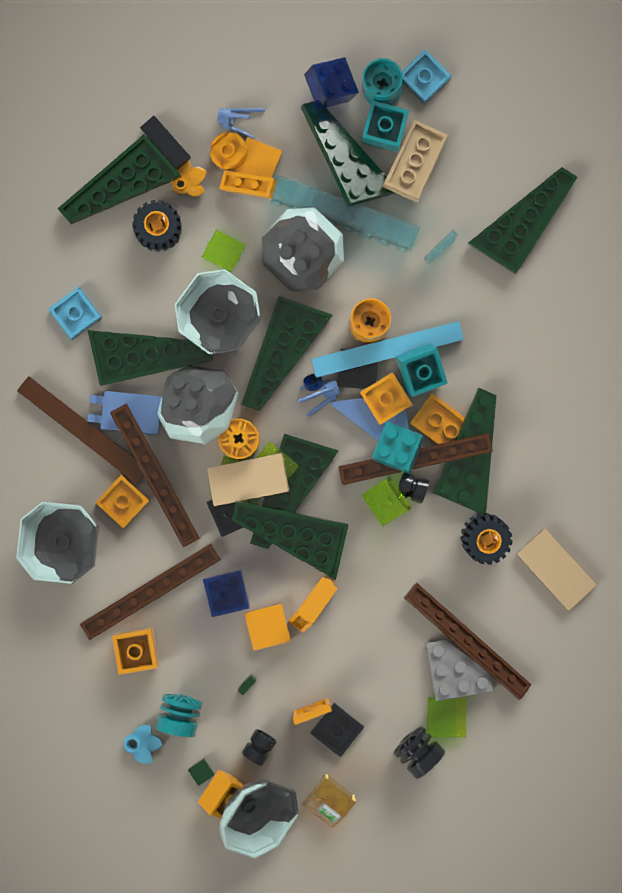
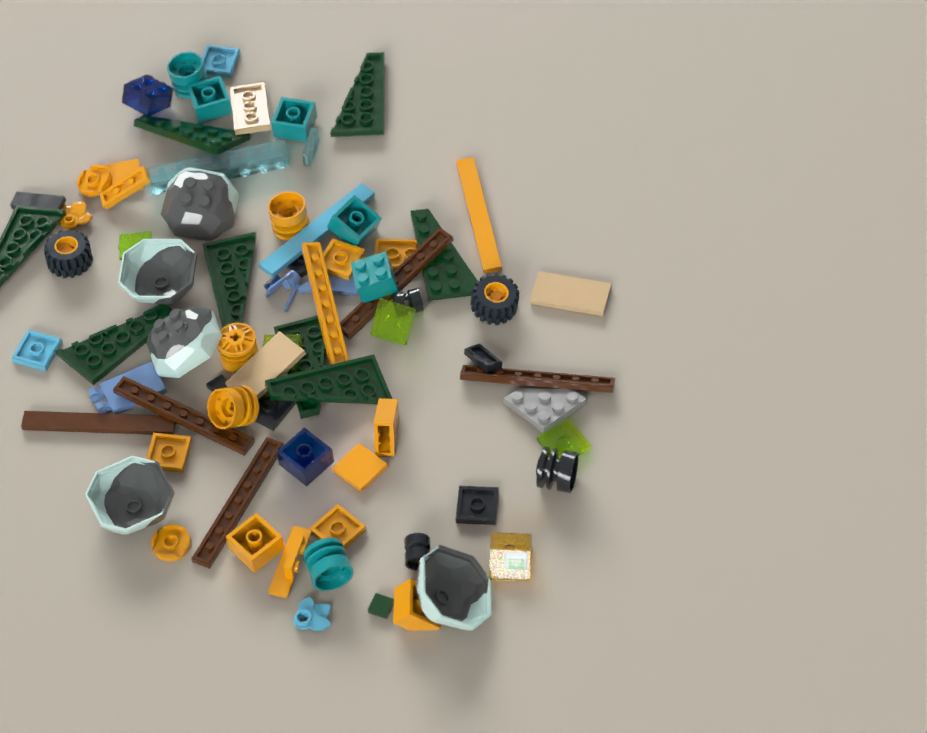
camera: 25 degrees left, 35 degrees down
(73, 597) = (171, 542): none -> light orange tile
(156, 681) = (290, 562): none -> light orange bracket
(195, 506) = (232, 407): none -> light orange wheel
(204, 459) = (217, 383): none -> black tile
(212, 675) = (338, 524): none -> light orange tile
(227, 117) = (77, 160): medium blue plant -> none
(250, 680) = (372, 514): dark green tile -> none
(311, 711) = (442, 494): light orange tile -> none
(340, 443) = (324, 302): none -> light orange tile
(437, 589) = (483, 358): none -> black tile
(445, 206) = (294, 119): none -> teal brick
(537, 426) = (478, 215): none -> light orange tile

